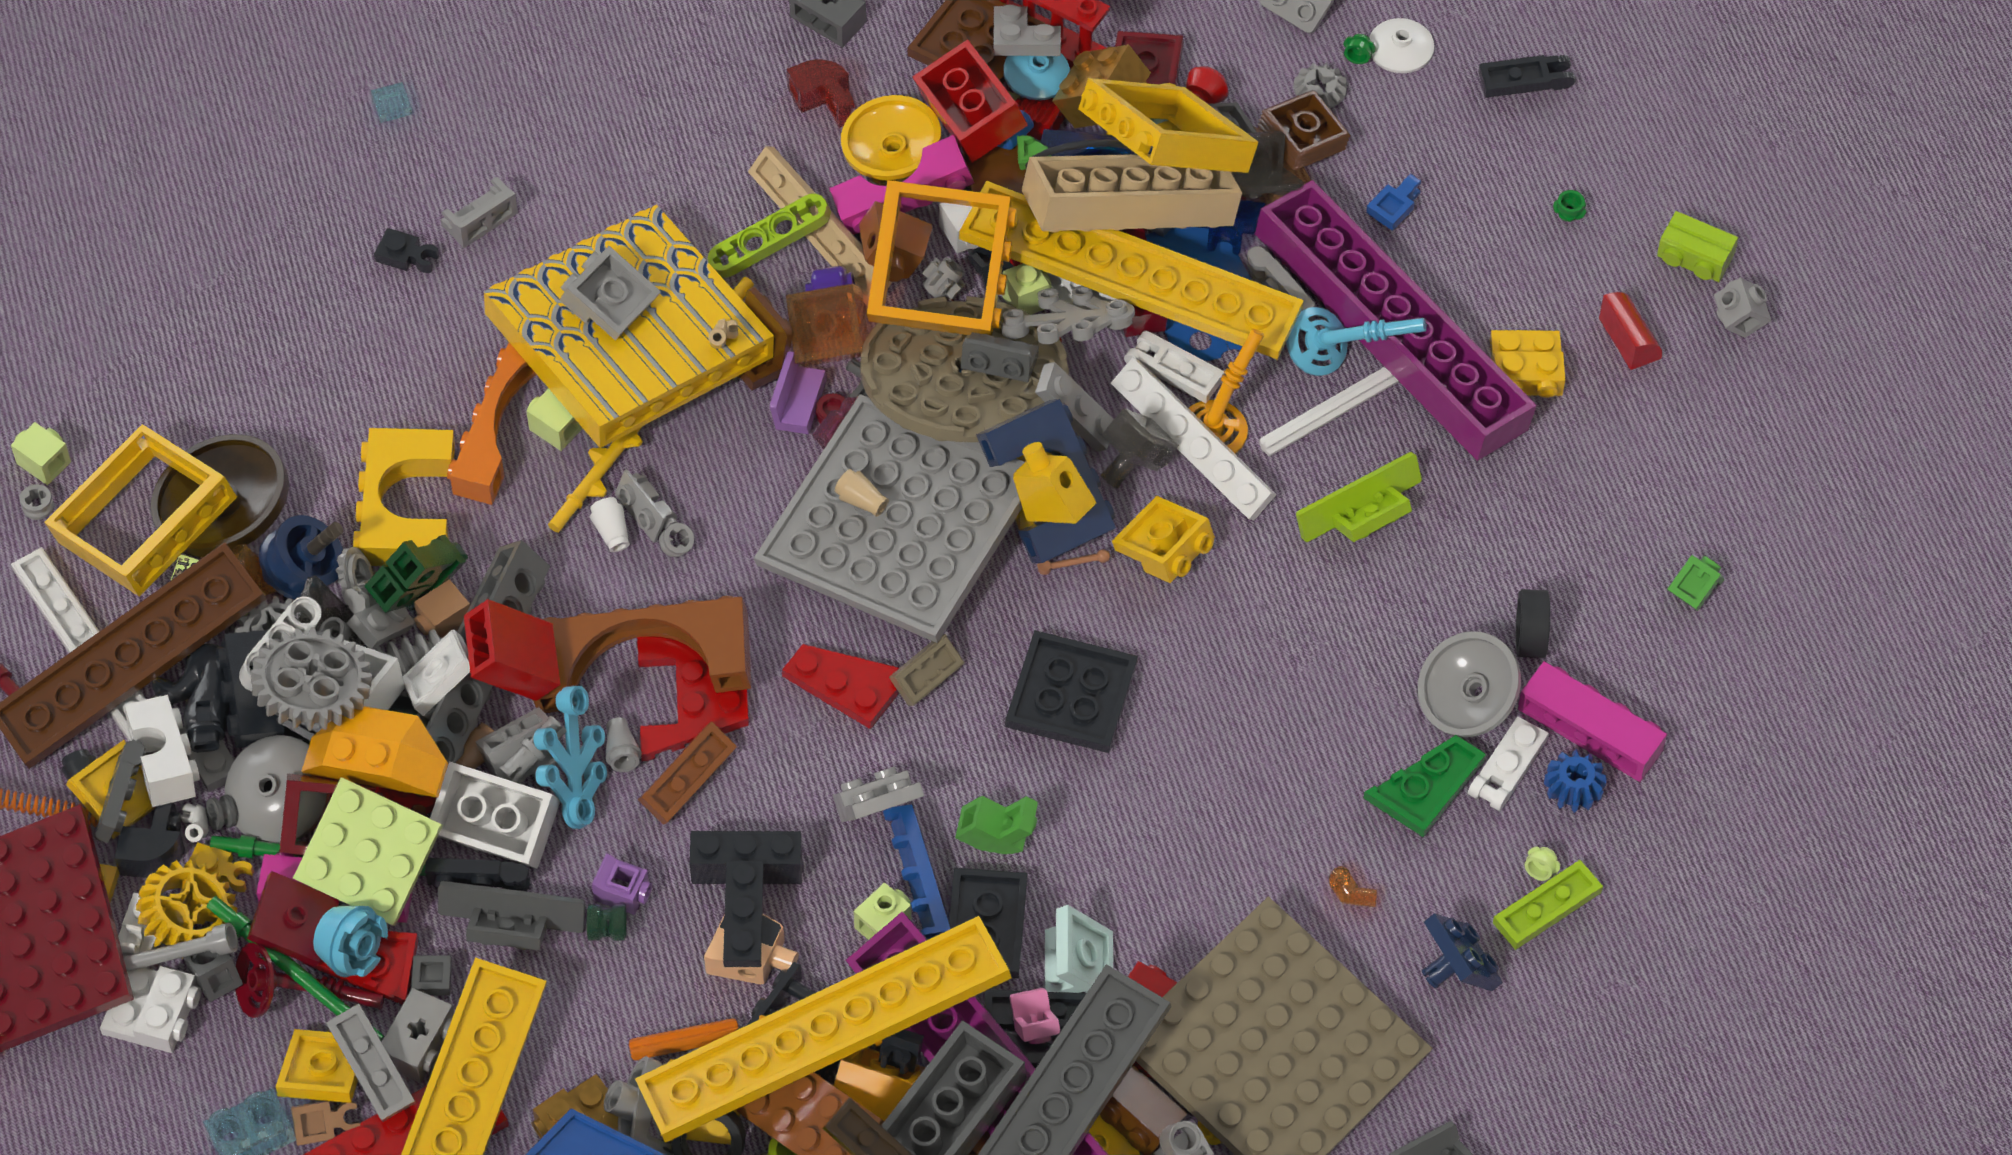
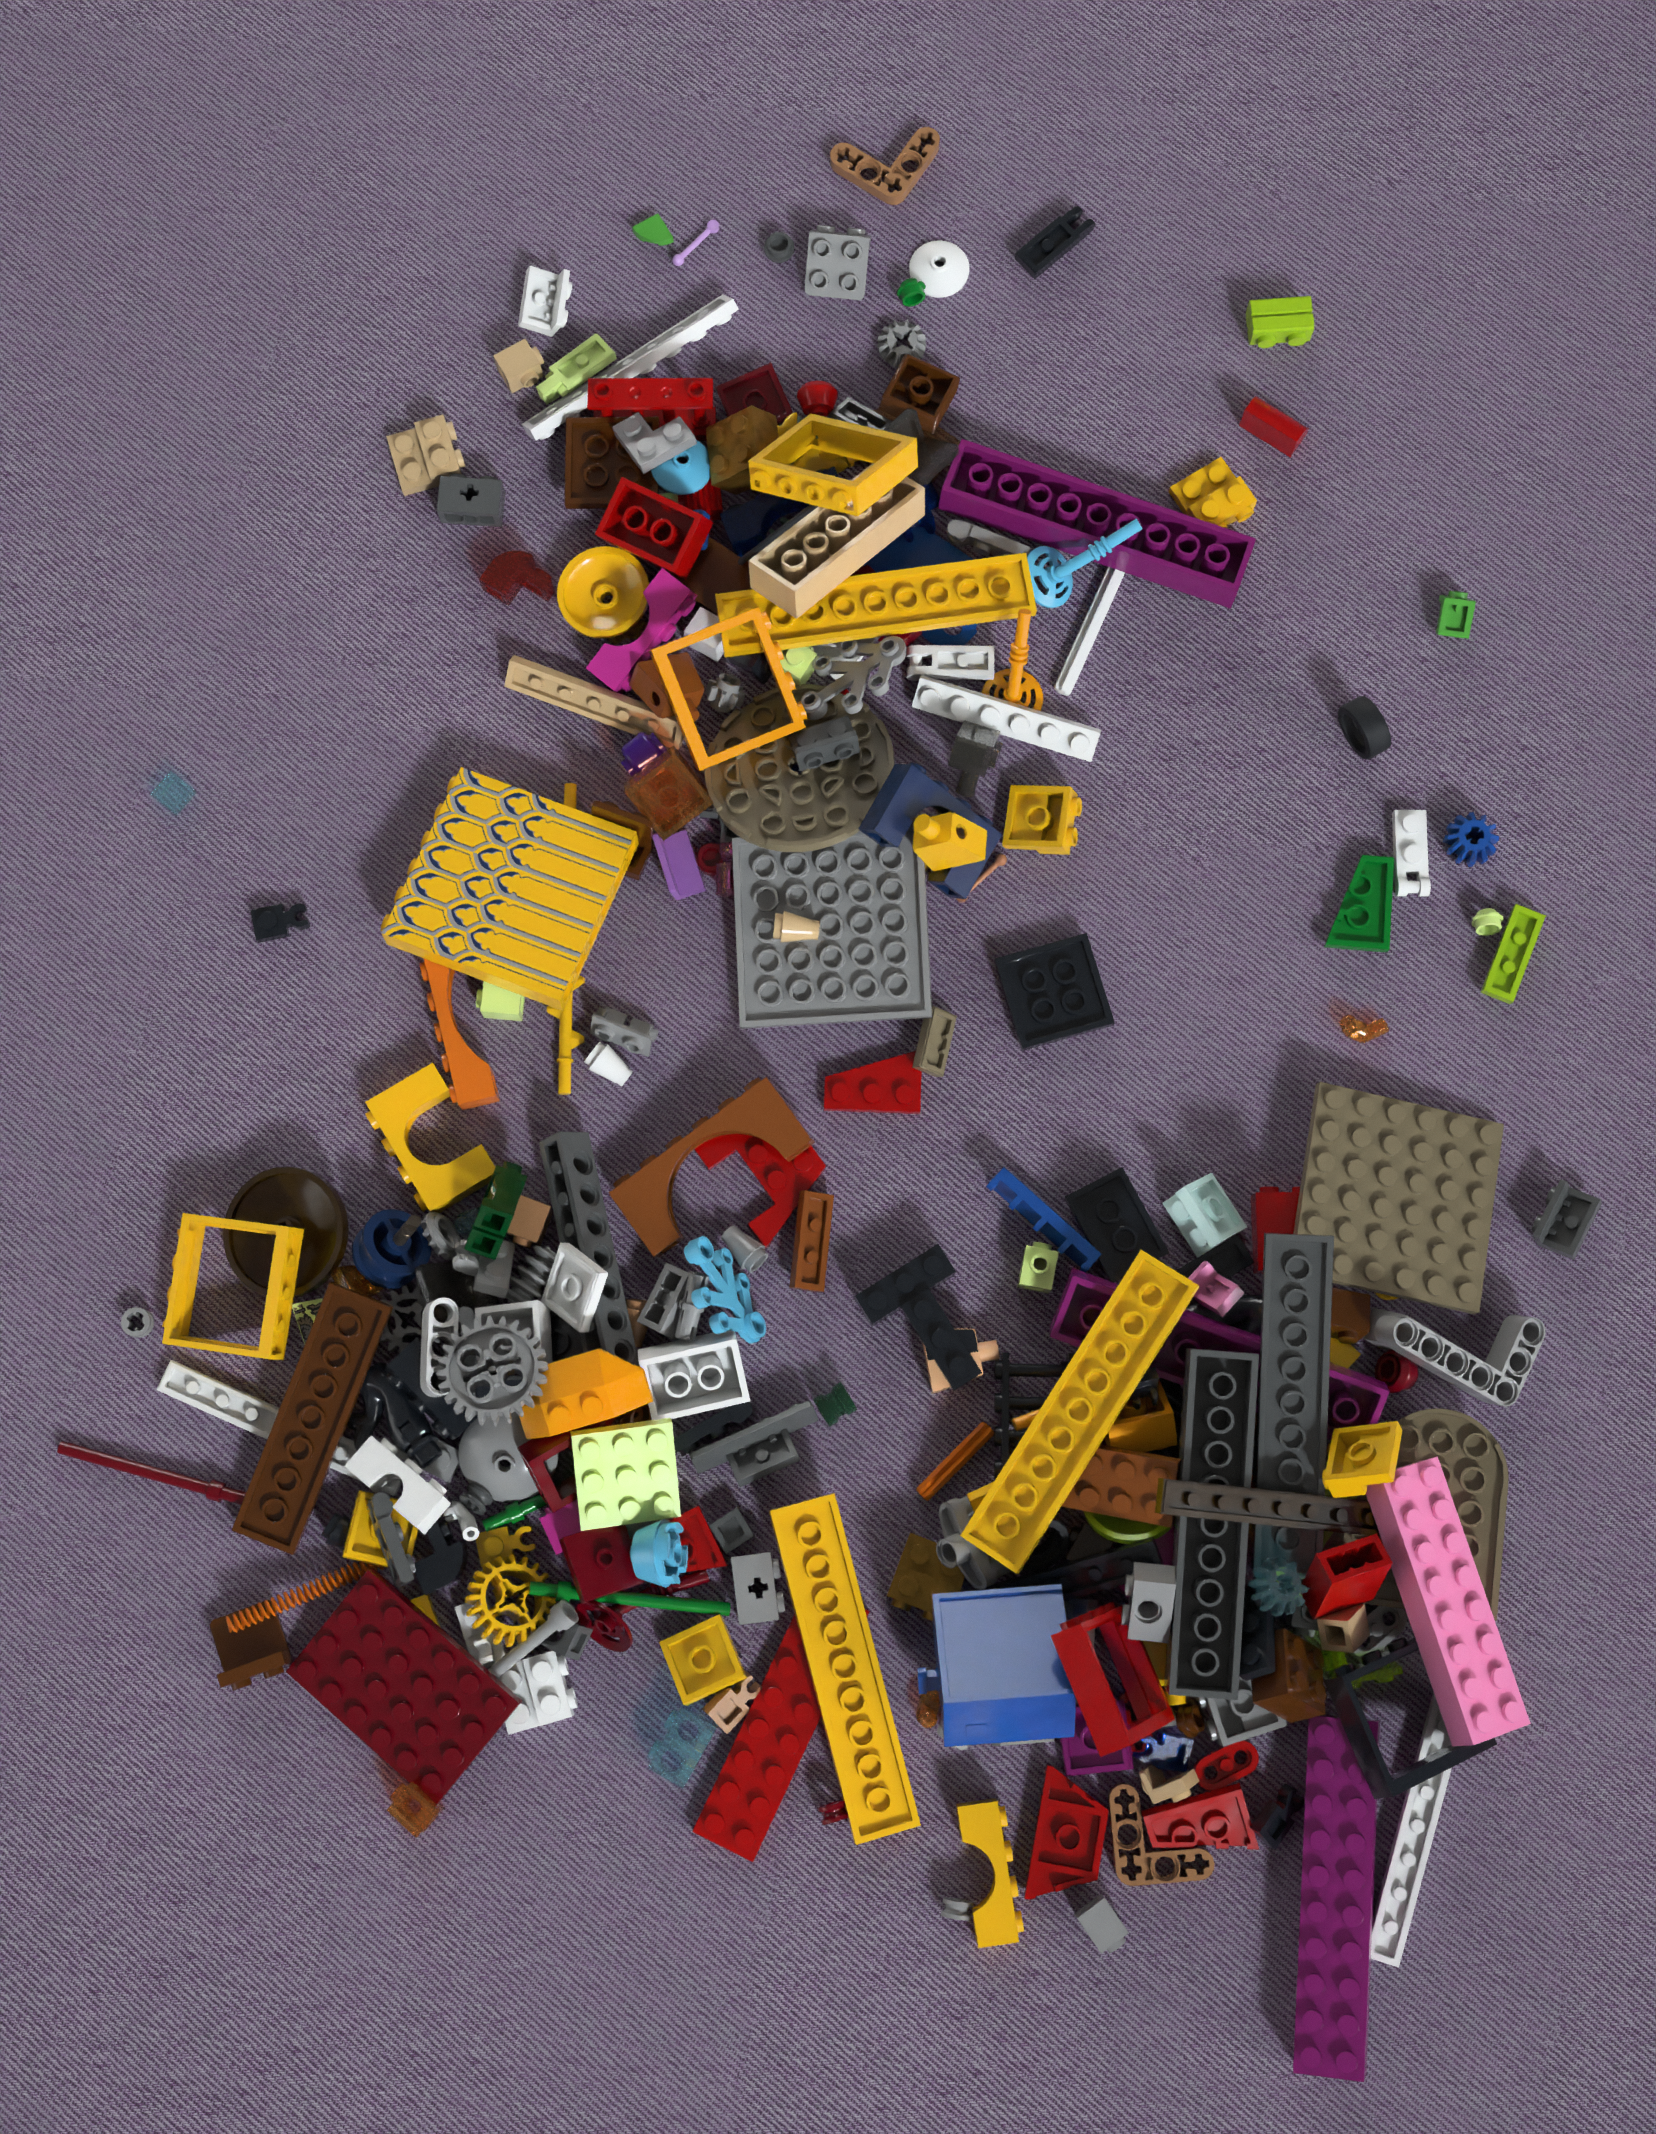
camera: 30 degrees left, 20 degrees up
(41, 452) = (111, 1279): yellowish green brick -> none
(337, 625) = (463, 1302): light grey hinge -> none
(370, 1062) = (744, 1641): light grey plate -> none
(481, 214) = (316, 851): light grey hinge -> none
(511, 650) = (623, 1238): red brick -> none
(608, 292) = (486, 877): light grey plate -> none
(611, 893) = (812, 1370): medium lavender window -> none
(684, 531) = (675, 1039): light grey bush -> none
(721, 331) = (596, 855): tan arm -> none
(767, 230) = (560, 734): lime beam -> none
(885, 792) = (974, 1177): light grey plate -> none
(997, 827) = (1075, 1141): bright green brick -> none
(1027, 148) = (728, 542): bright green tile -> none
(1088, 416) = (906, 748): light grey plate -> none
(1364, 503) = (1173, 697): lime bracket -> none
(1393, 204) = (1027, 418): blue plate -> none
(1454, 674) = (1335, 825): light grey dish -> none
(1460, 955) = (1482, 1039): dark blue plate -> none
(1571, 199) = (1164, 333): green plate -> none
(1592, 721) = (1453, 781): dark pink brick -> none
(1742, 307) = (1347, 355): light grey brick -> none

